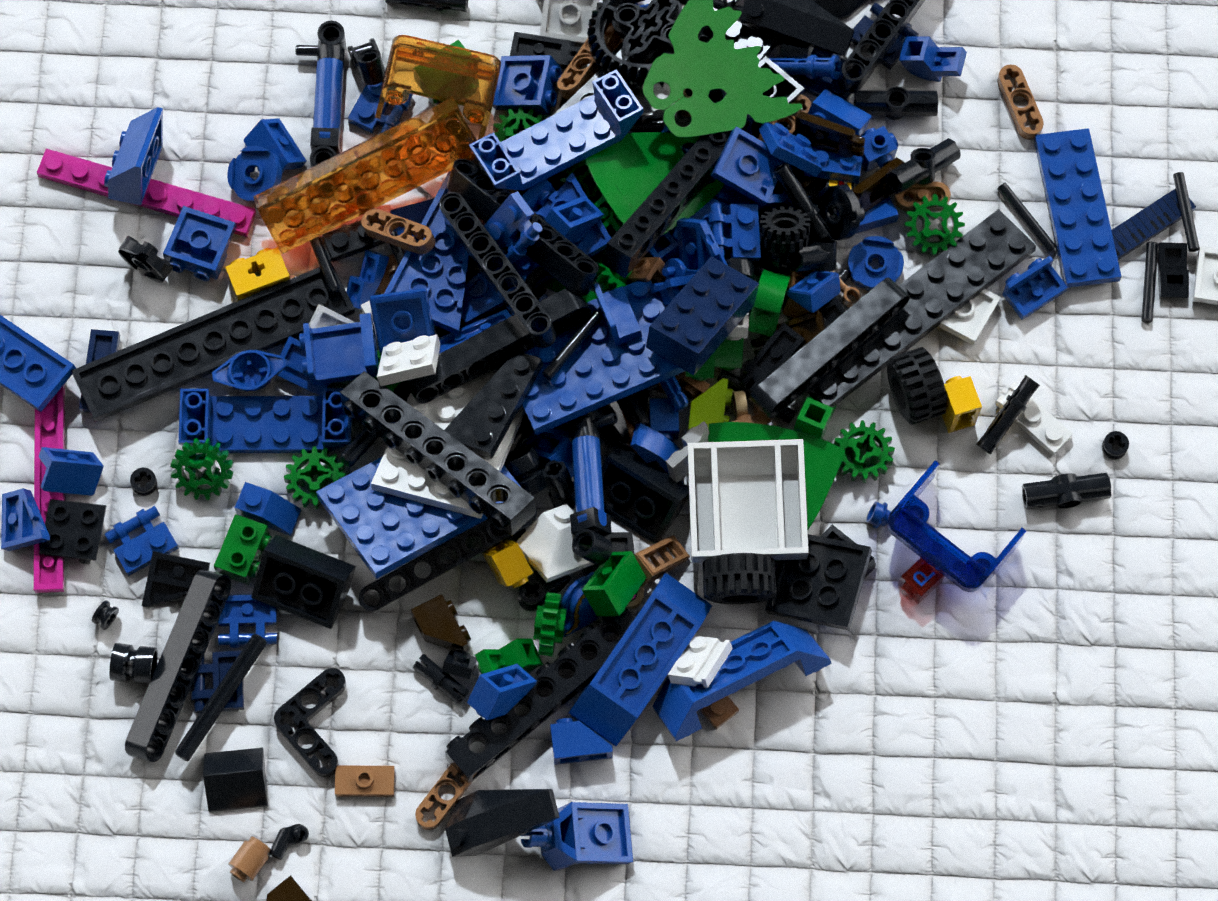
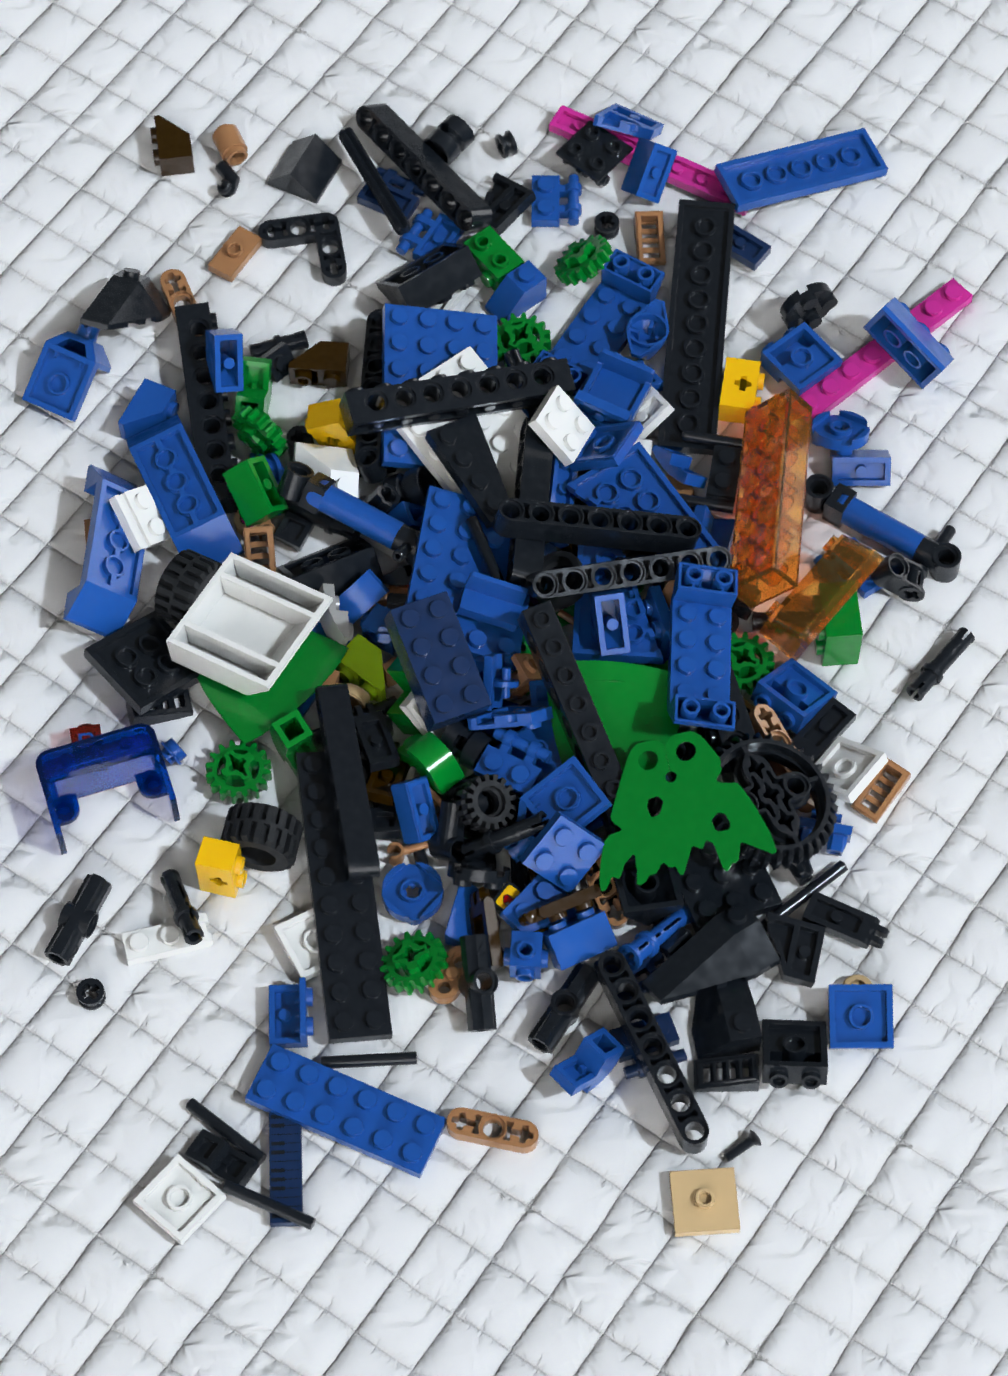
camera: 125 degrees right, 10 degrees down
(131, 451) = (649, 218): none -> medium nougat slope
(405, 240) = (704, 480): medium nougat beam -> none
(508, 221) = (632, 549): blue plate -> none

